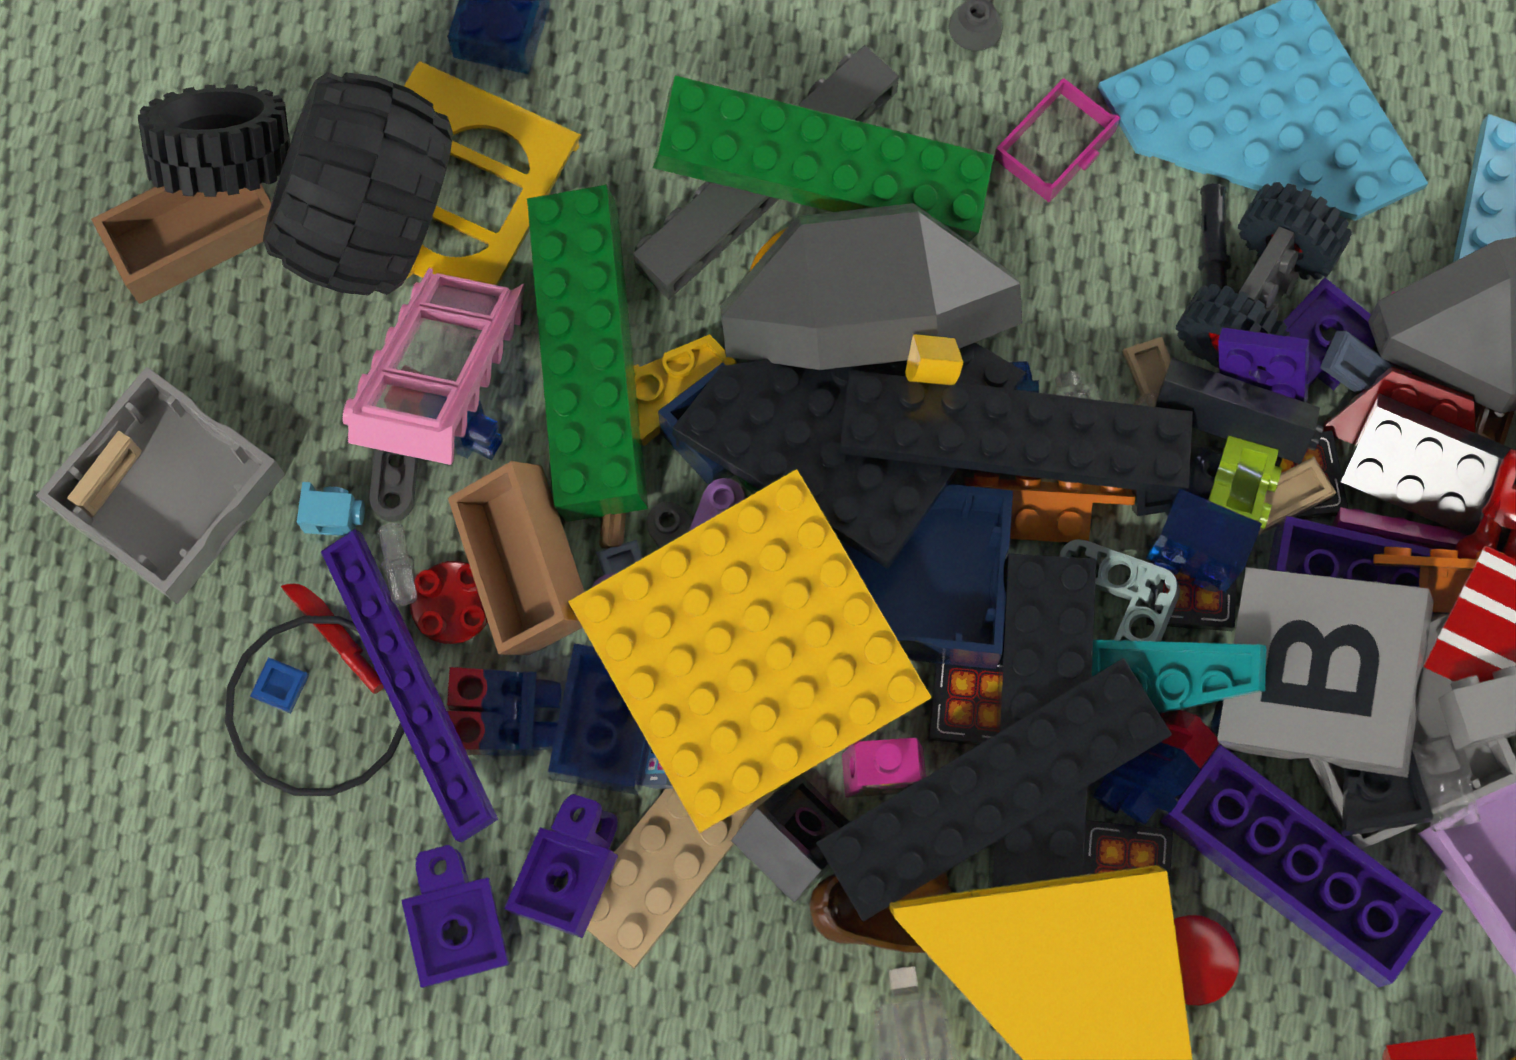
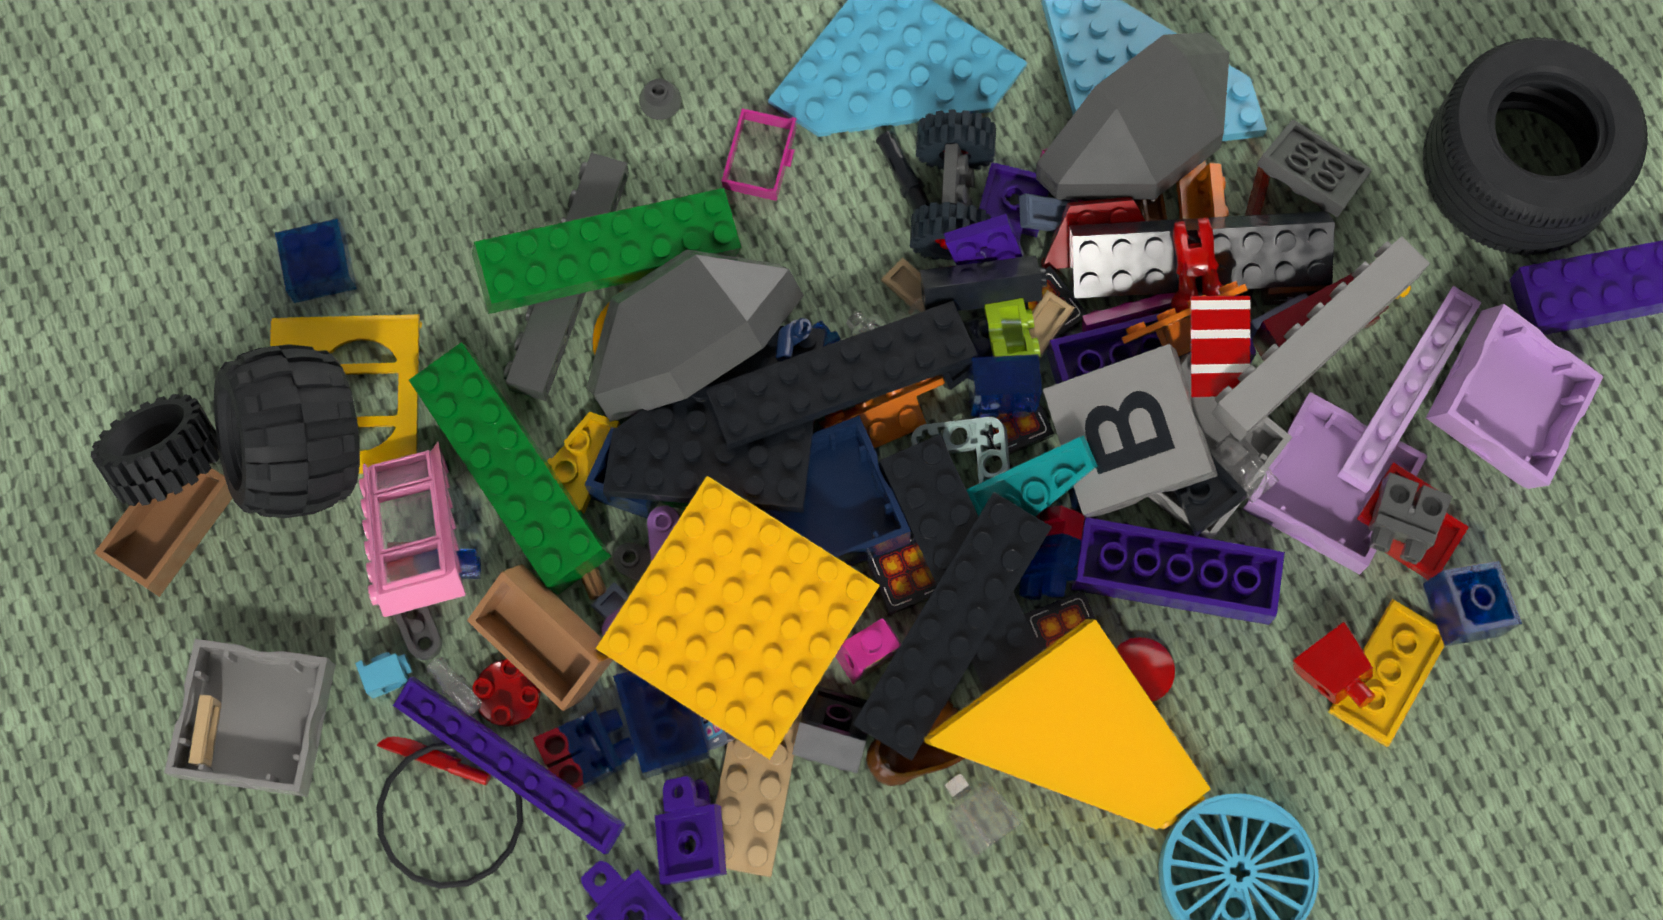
camera: 30 degrees left, 0 degrees up
(279, 685) = (414, 815): blue tile -> none
(933, 360) = (761, 353): yellow brick -> none
(983, 358) = (790, 336): none -> dark blue arm

